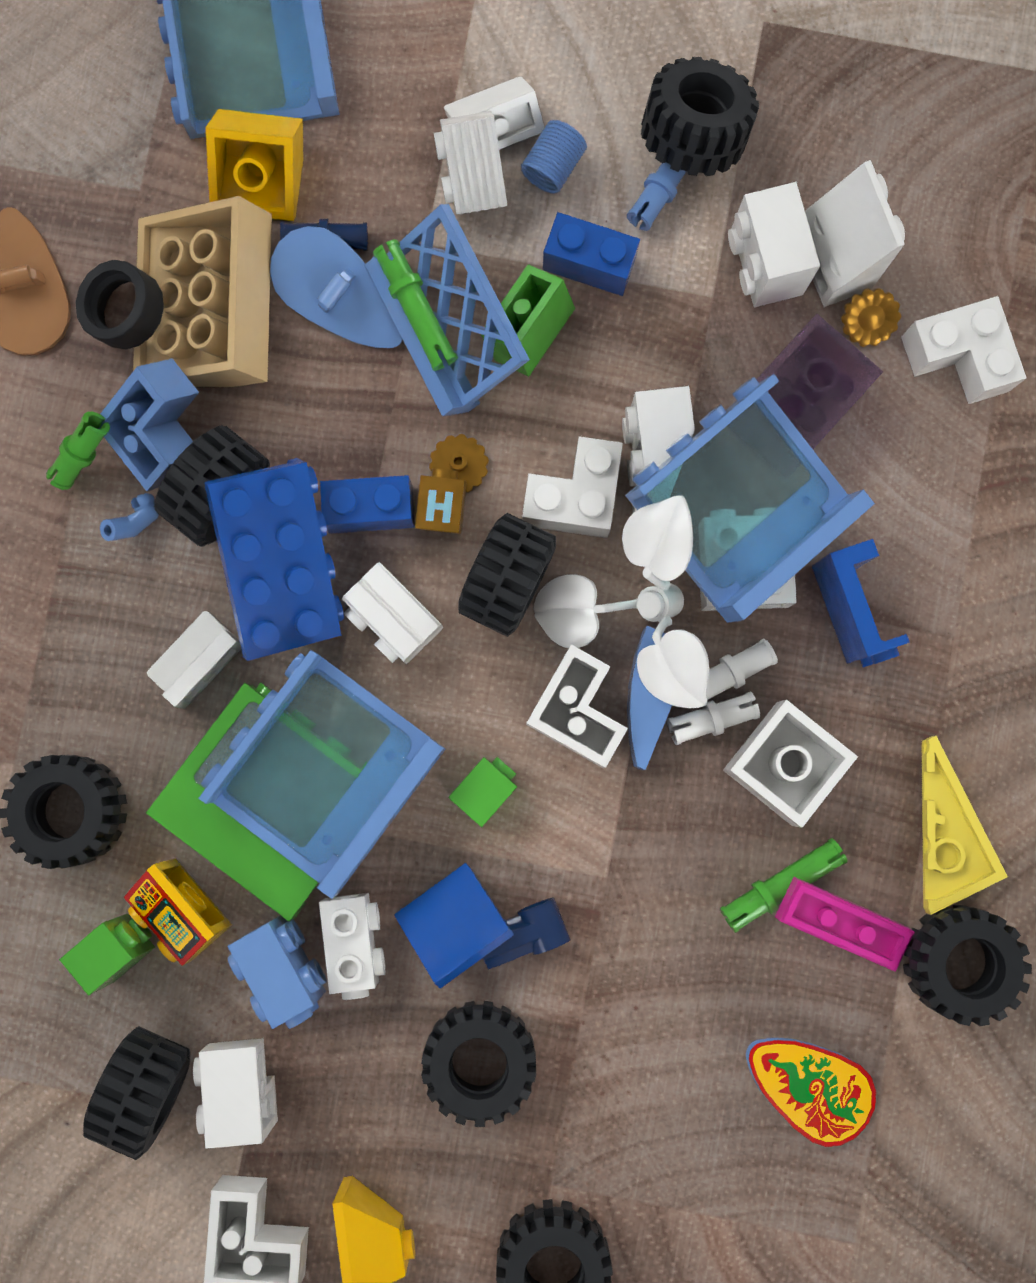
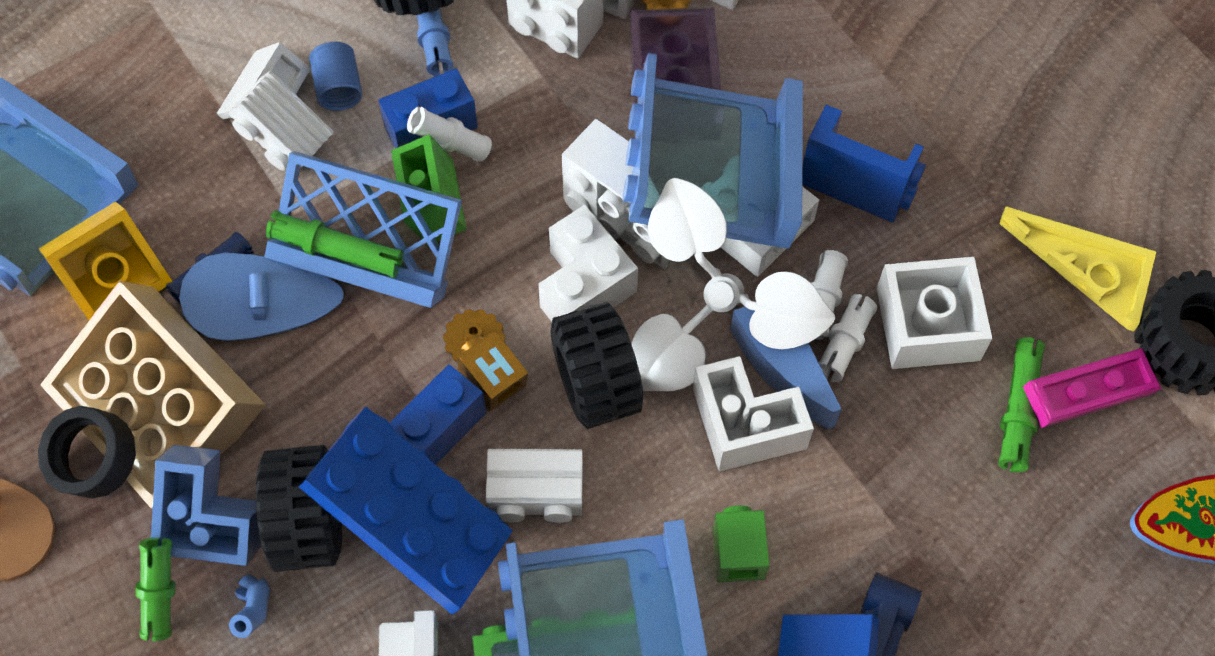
camera: 45 degrees left, 20 degrees down
(584, 288) = (449, 134): none -> white pin

